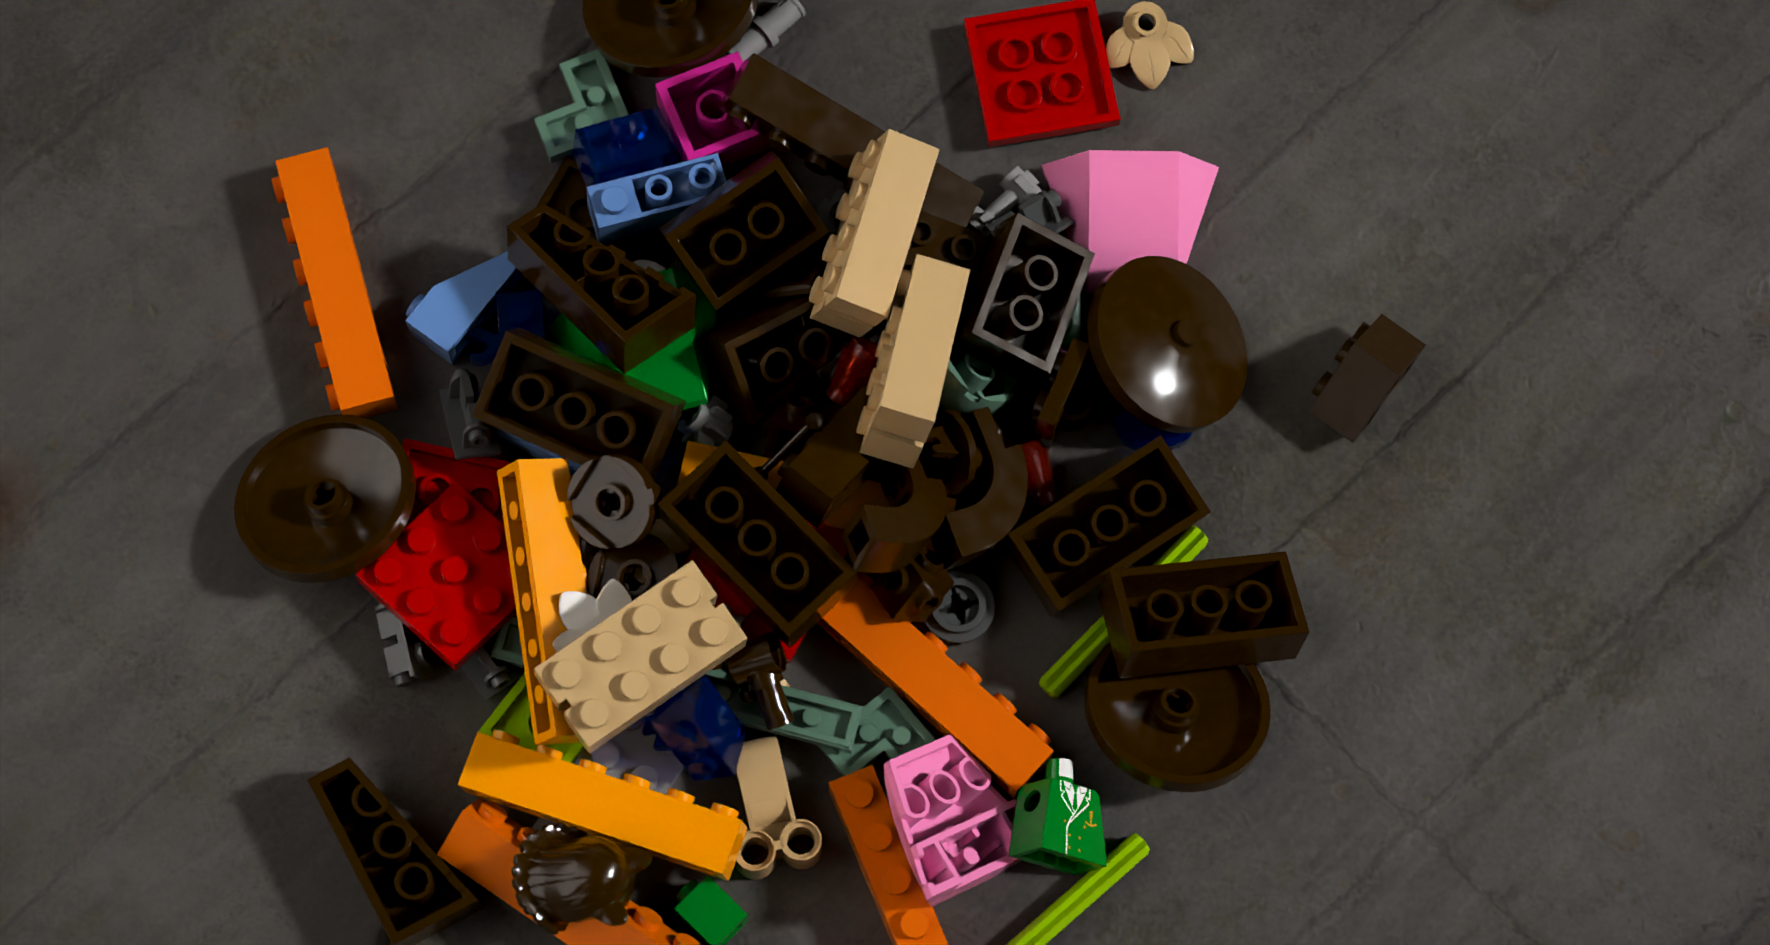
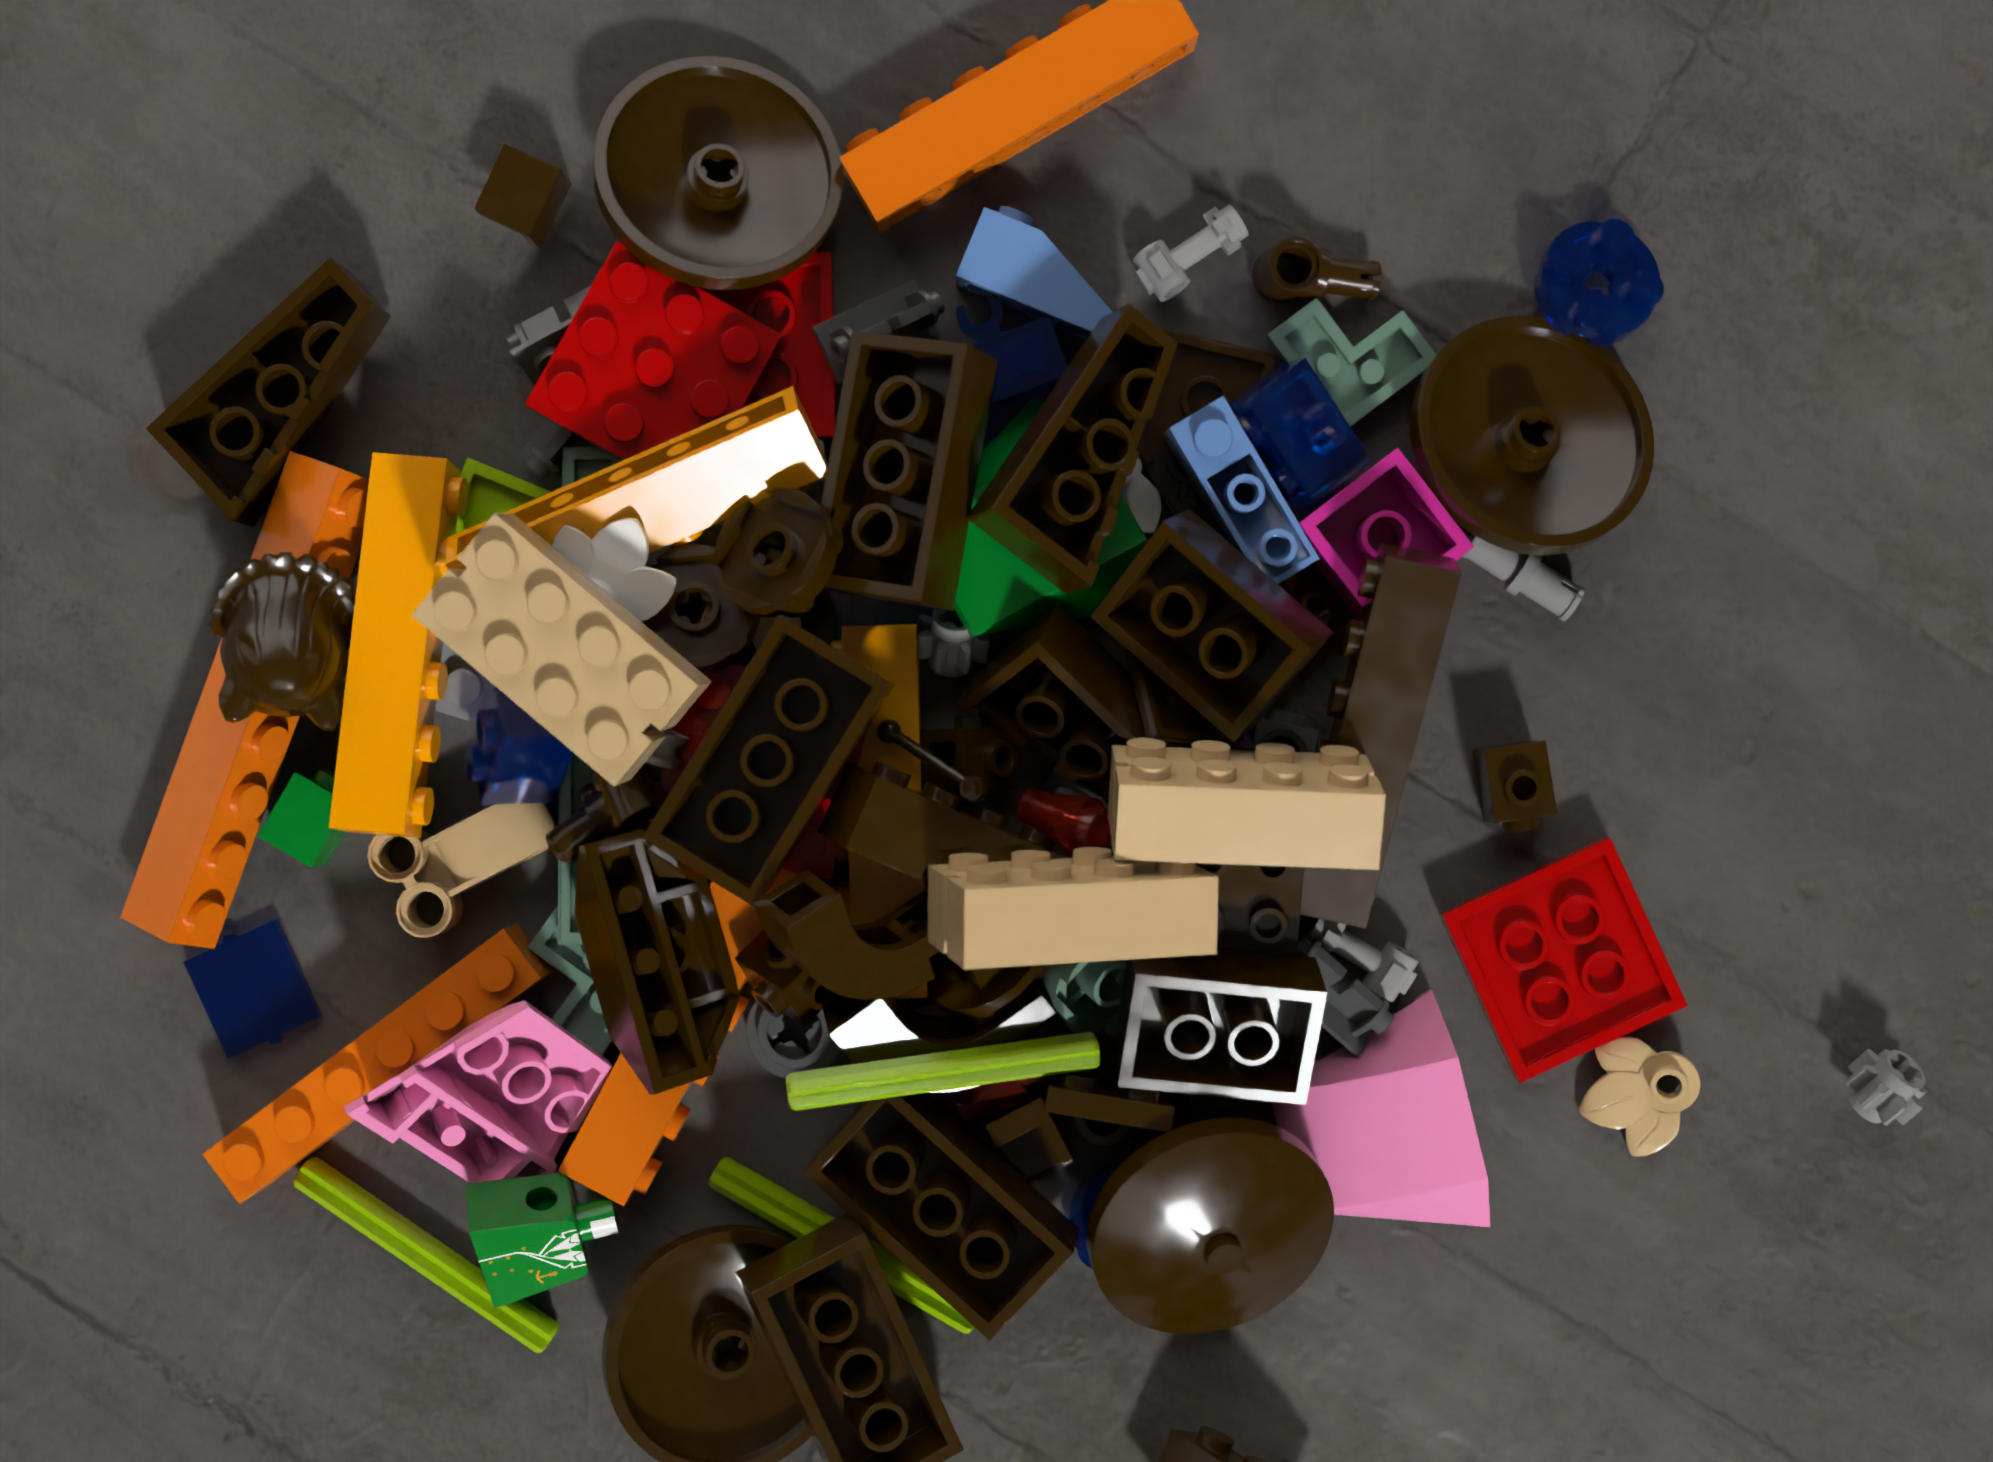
camera: 80 degrees right, 15 degrees up
(296, 642) = (523, 194): none -> dark brown panel
(483, 217) = (1163, 269): none -> light grey bar
(517, 117) = (1315, 272): none -> dark brown pin
(877, 673) = (655, 959): none -> dark brown wedge
(910, 72) = (1515, 784): none -> dark brown brick
(1008, 489) = (942, 1071): none -> lime axle
(1076, 459) = (1029, 1137): none -> dark brown panel

